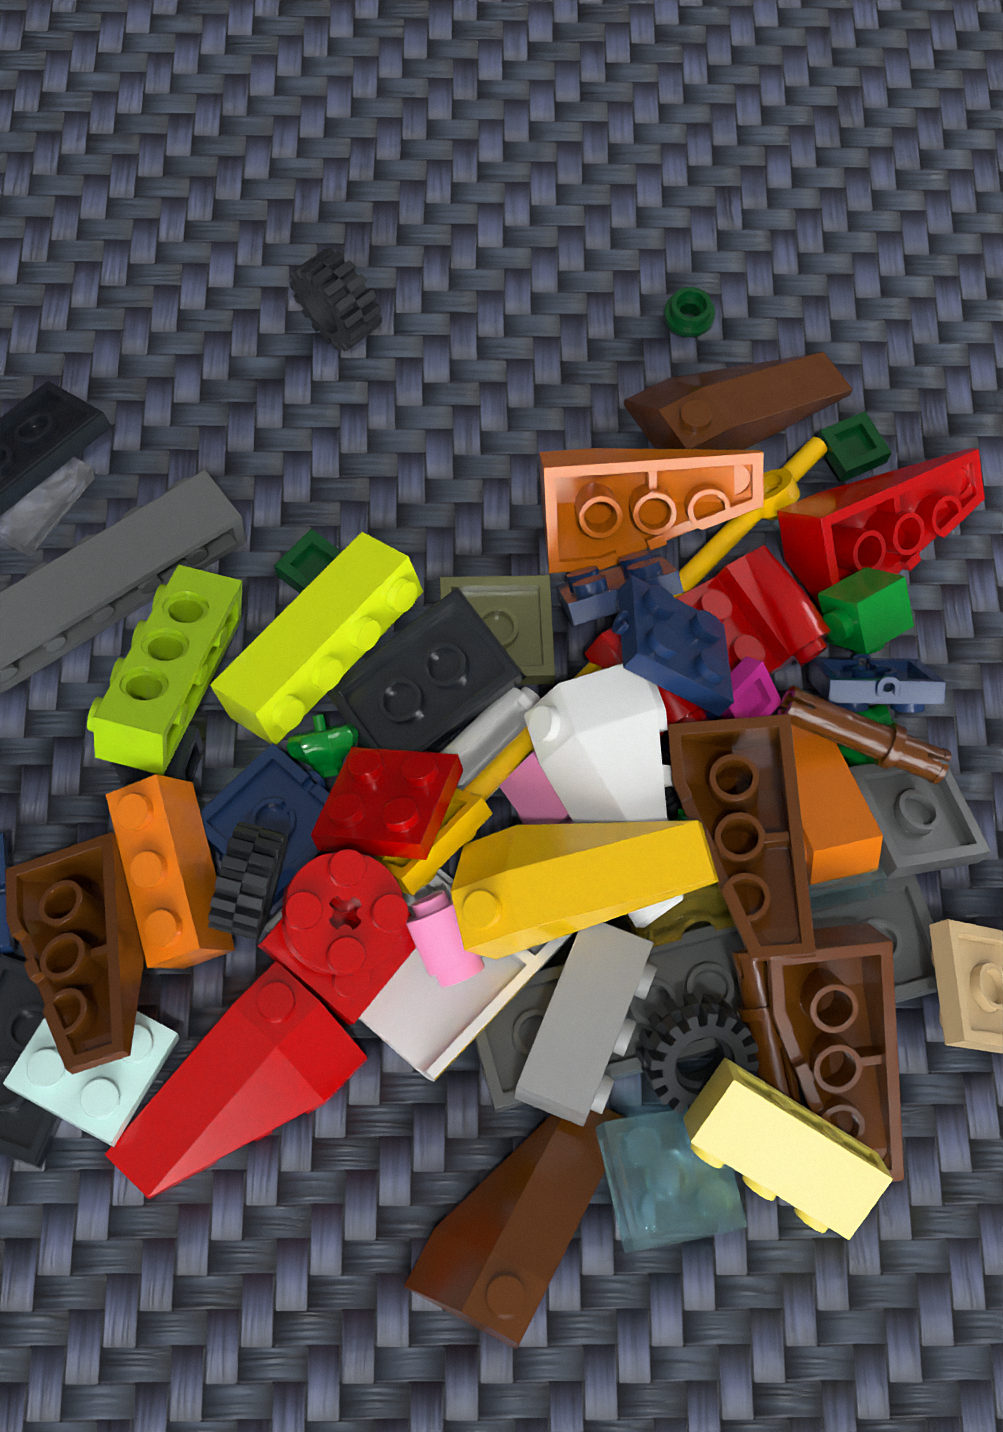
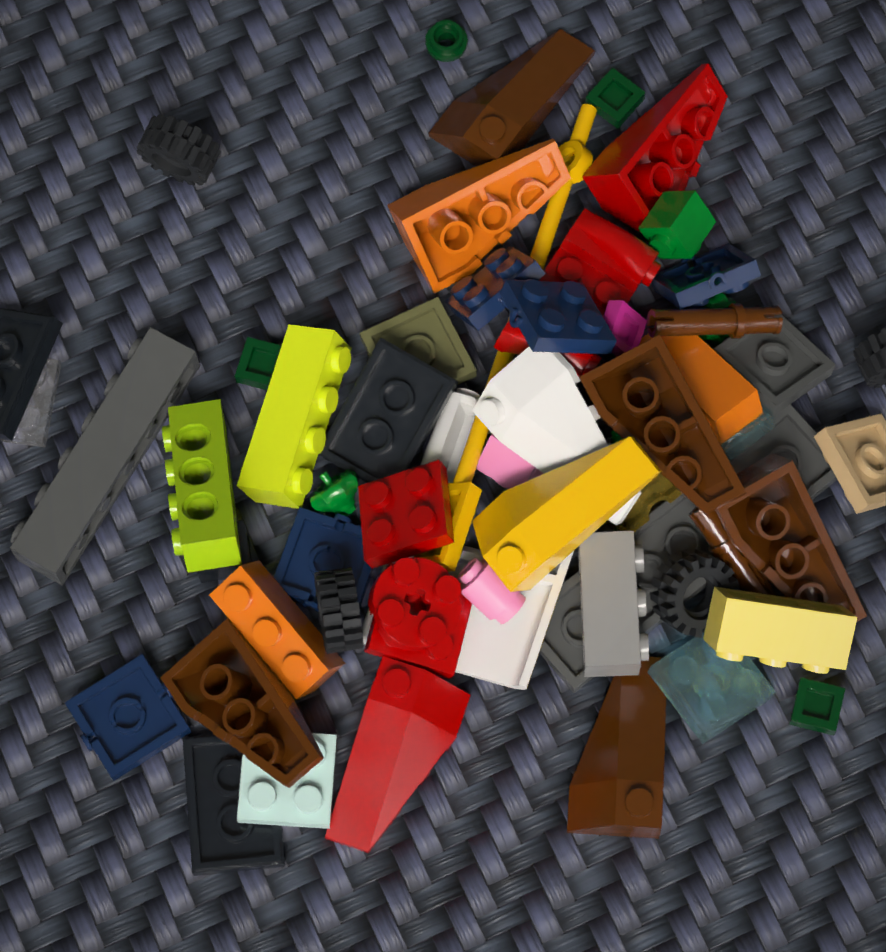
camera: 15 degrees left, 5 degrees up
(792, 1270) = (817, 706): none -> dark green plate

